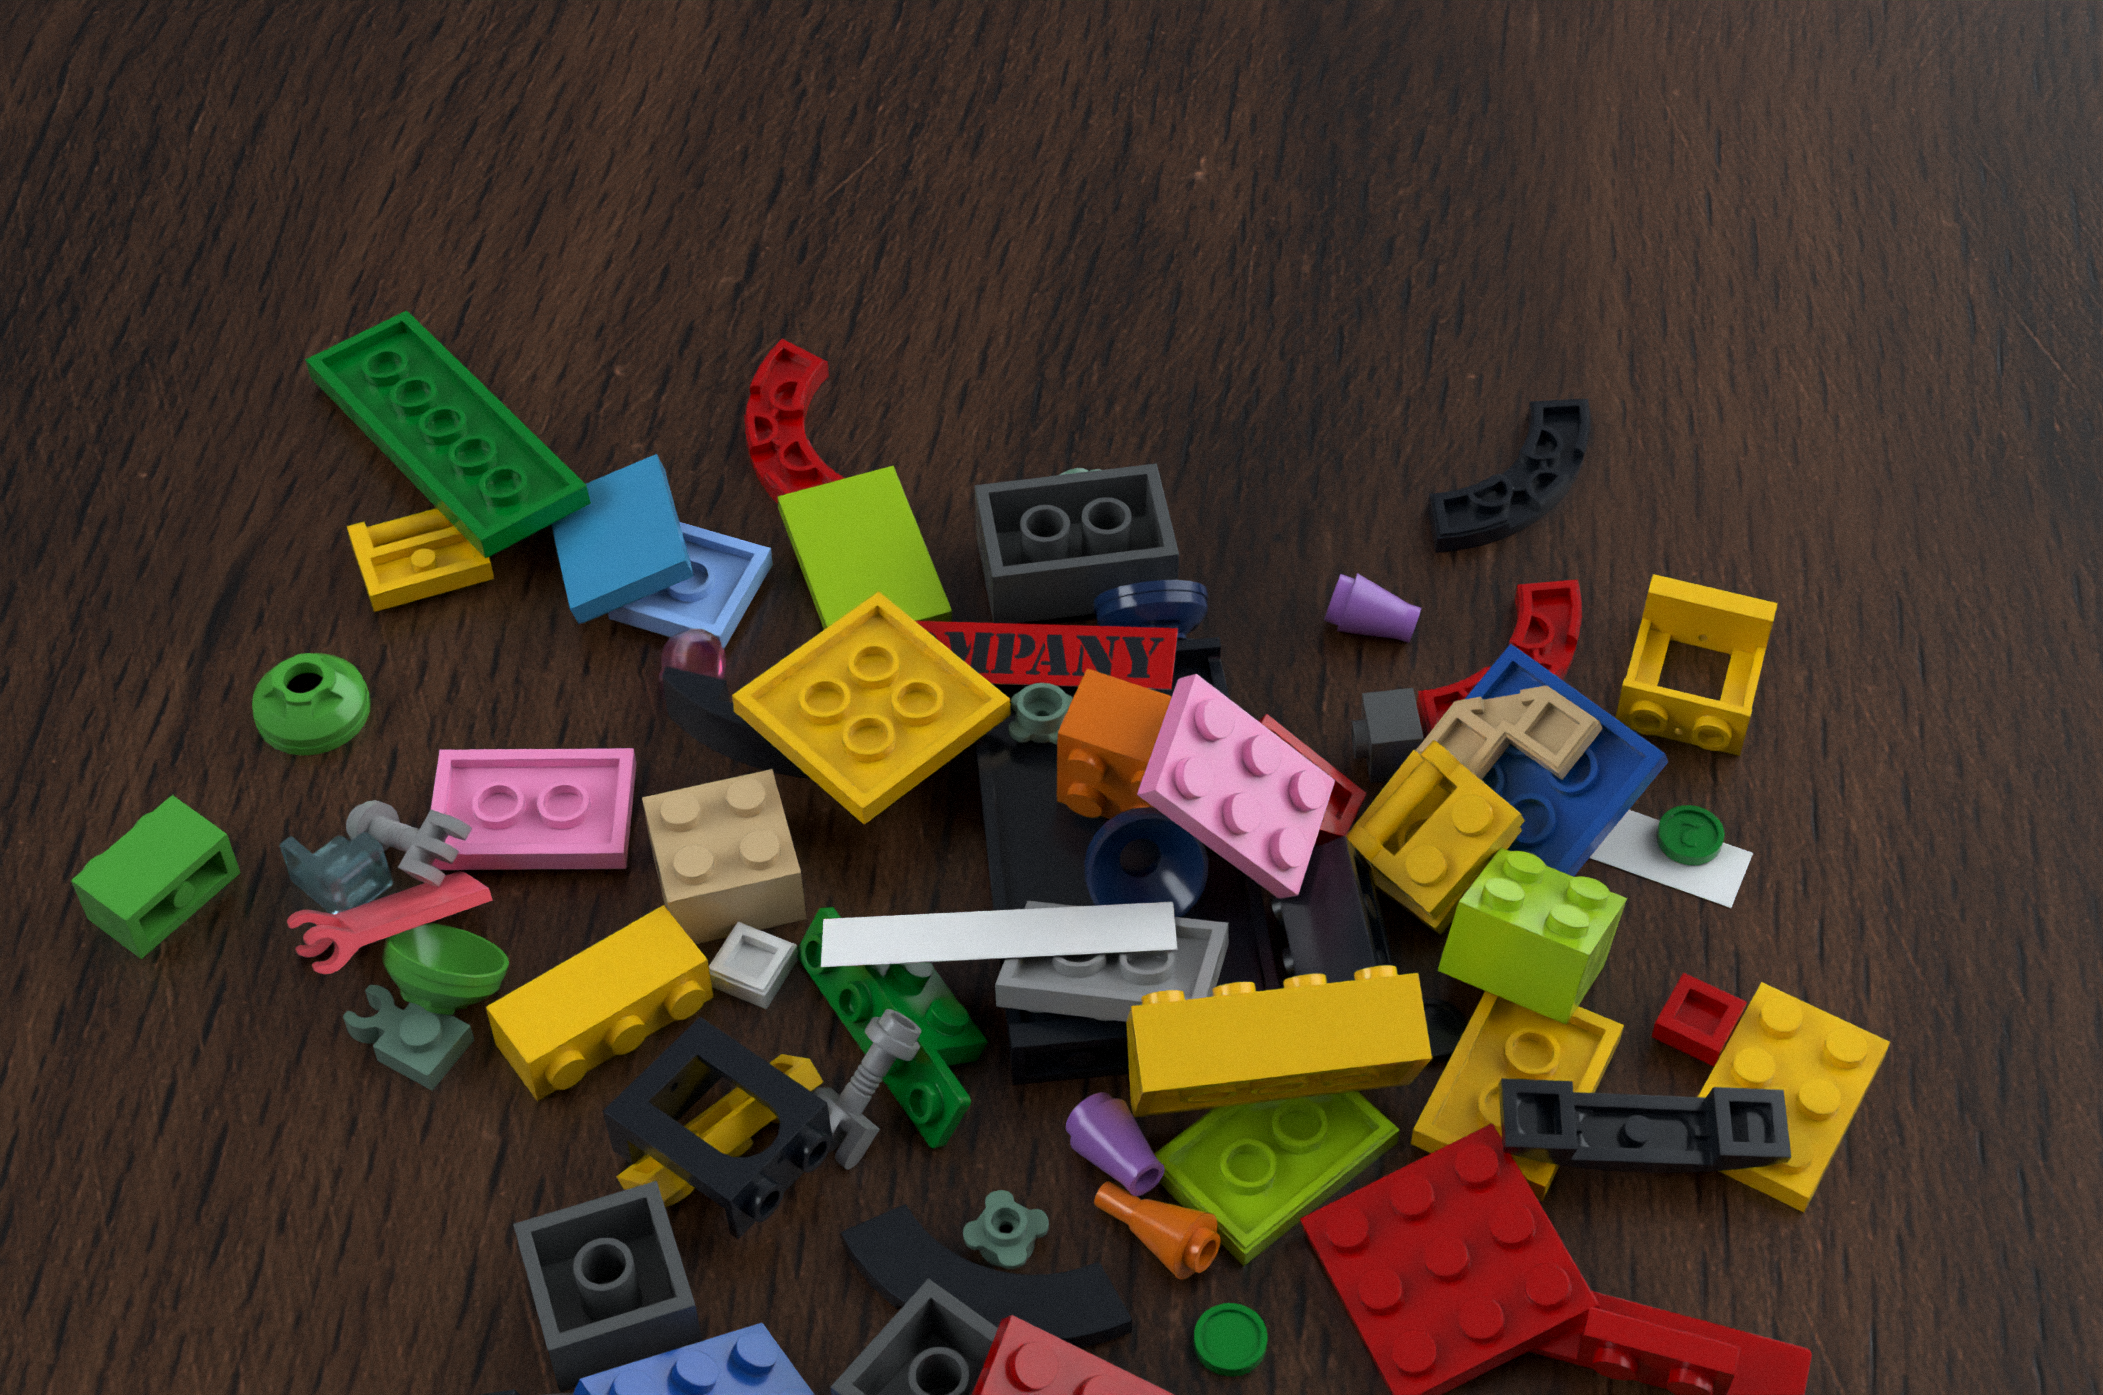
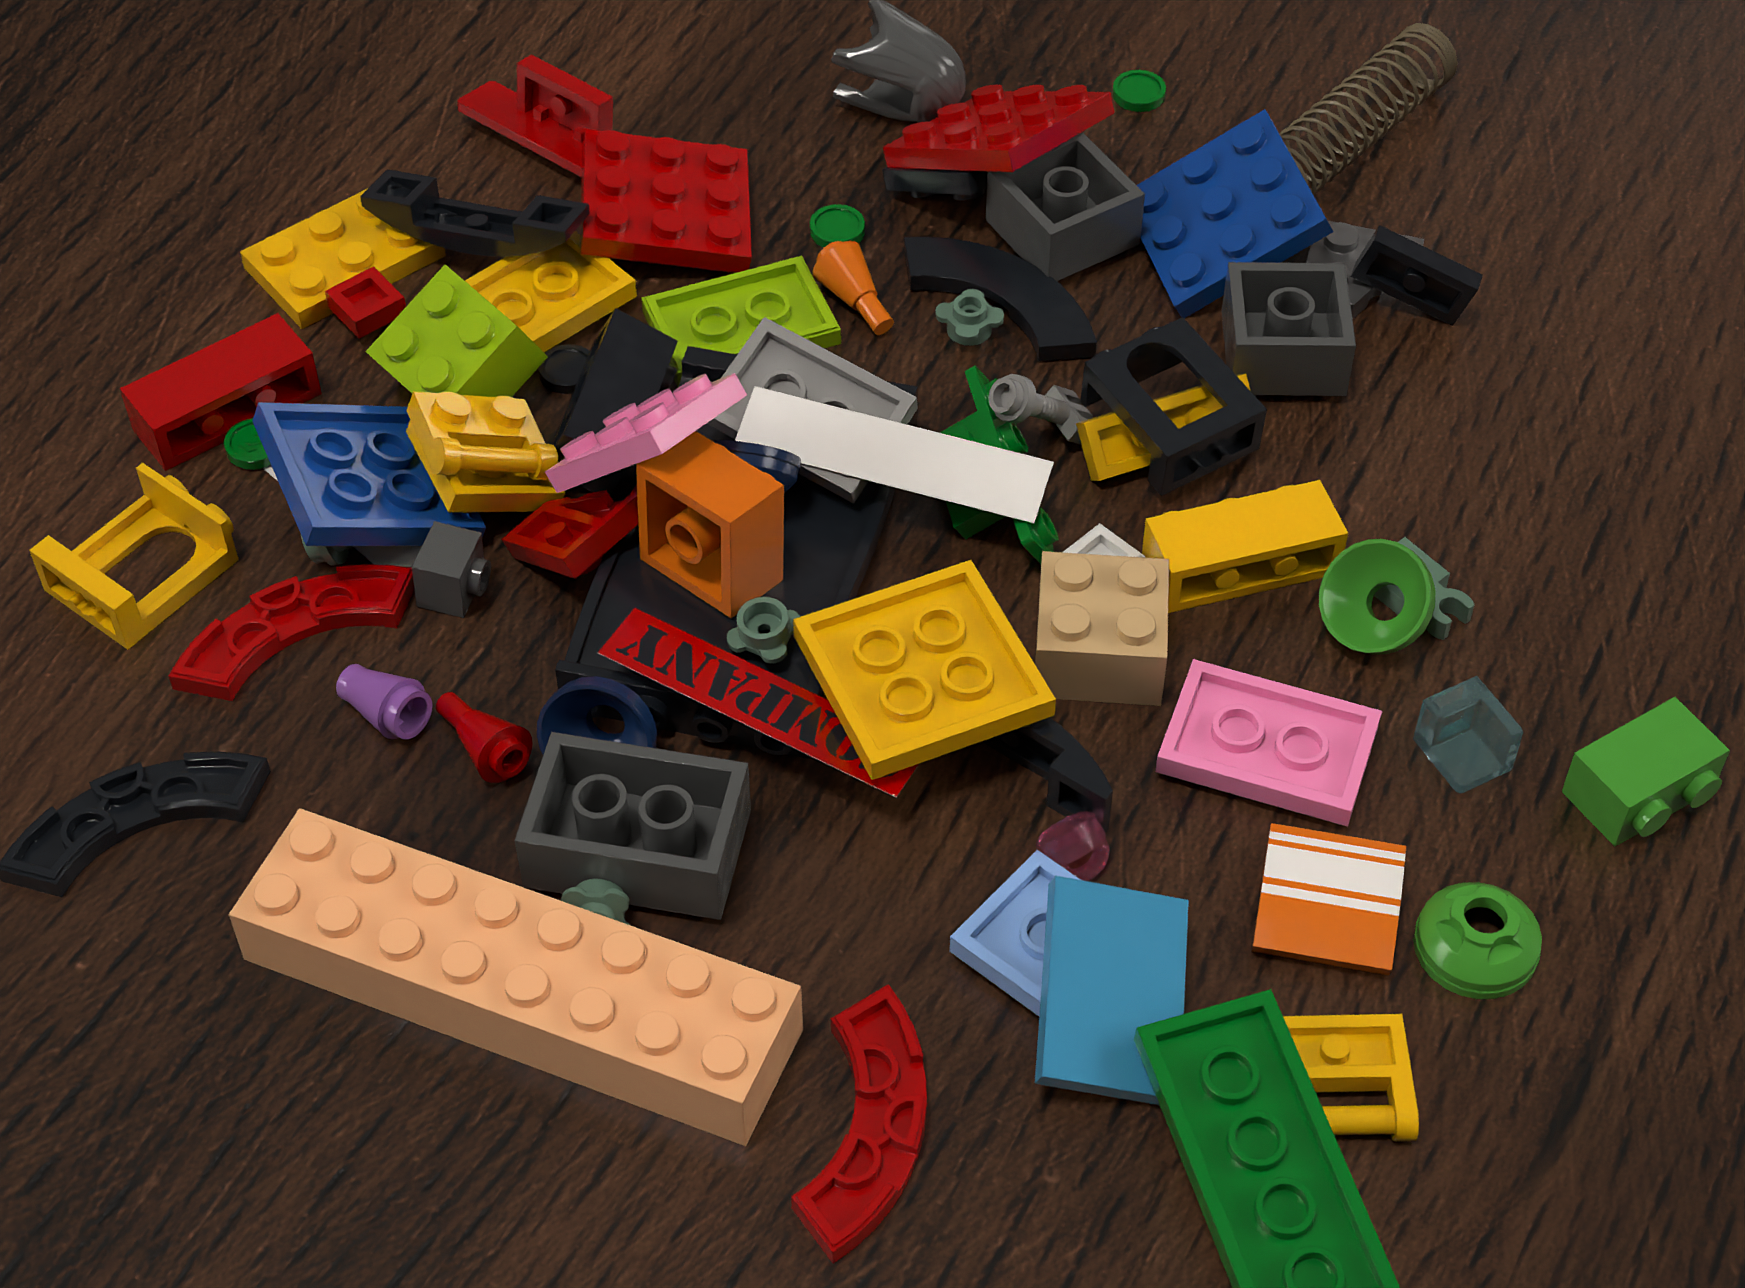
camera: 160 degrees left, 0 degrees up
(384, 918) = (1410, 641): coral flag -> none
(420, 845) = (1374, 687): light grey hinge -> none
(448, 688) = (1330, 899): none -> orange slope
(860, 541) = (854, 909): lime tile -> none
(1112, 1140) = (863, 334): medium lavender cone -> none
(1203, 423) = (521, 974): none -> light nougat brick
(1253, 603) = (493, 744): none -> red cone
(1276, 1041) = (720, 279): yellow slope -> none
(1534, 722) = (340, 466): tan tile -> none
(1761, 857) = (210, 391): none -> red brick

